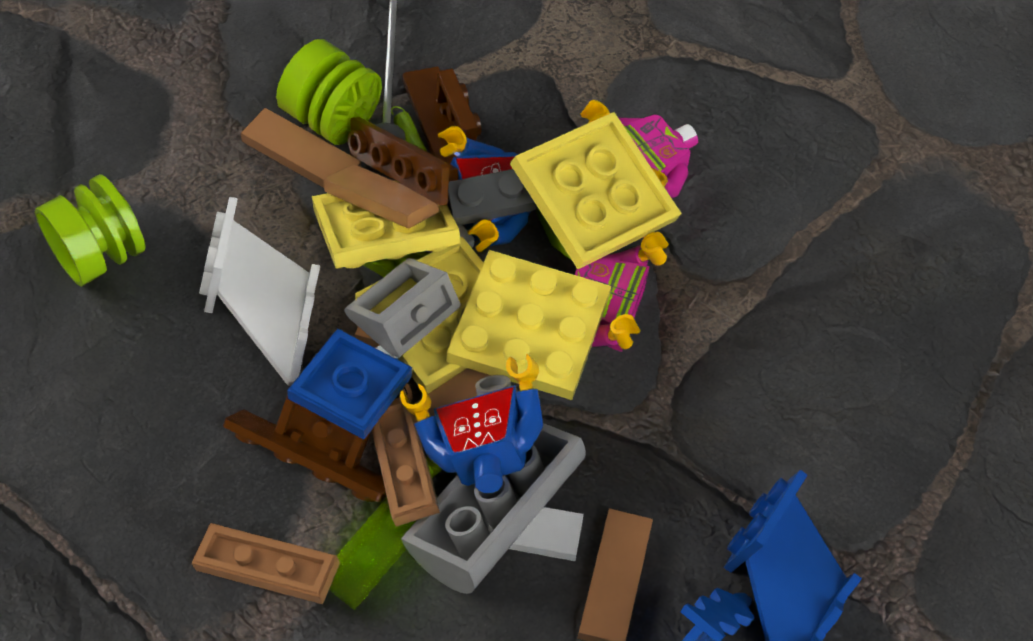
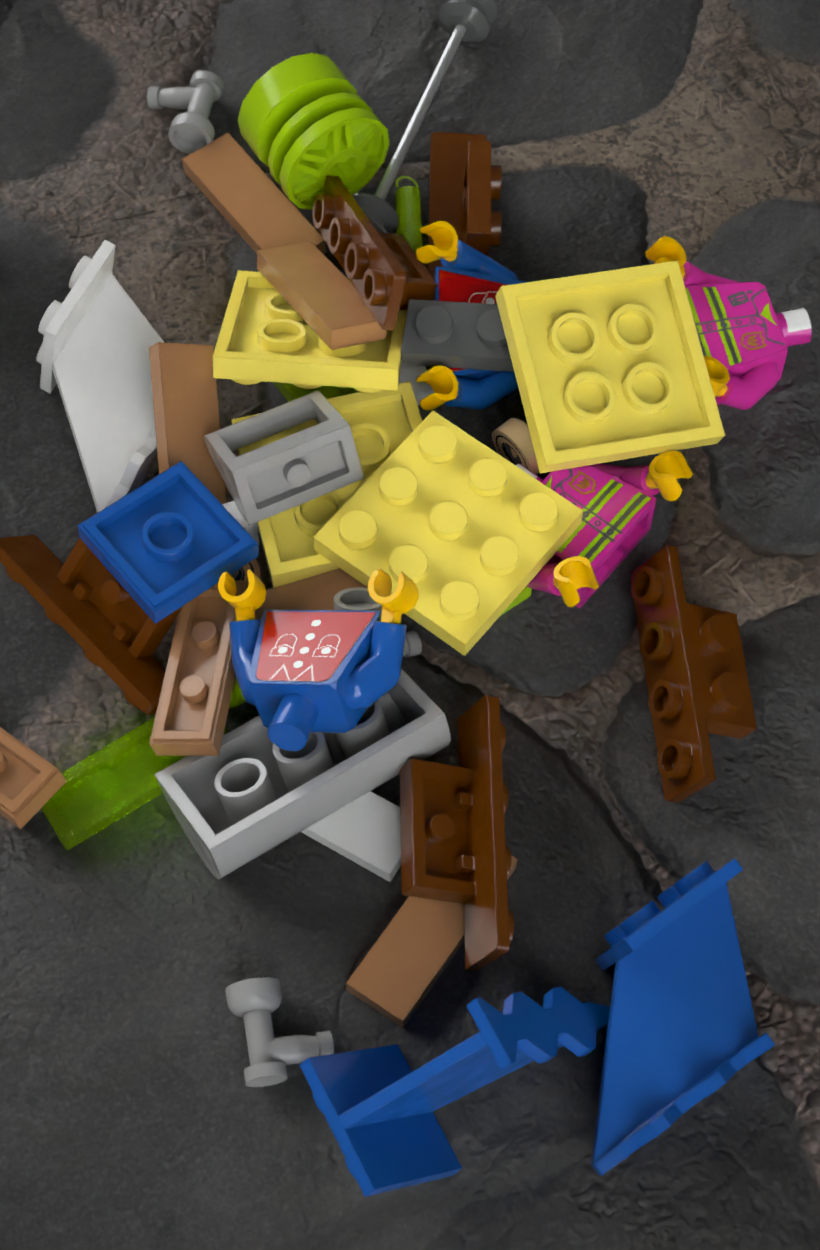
camera: 25 degrees right, 5 degrees up
(239, 111) = (191, 128): none -> light grey piece
(322, 294) = (186, 409): none -> medium nougat tile
(546, 255) = (515, 444): none -> tan tile
(616, 512) = (457, 833): none -> reddish brown bracket
(709, 371) = (691, 675): none -> reddish brown bracket

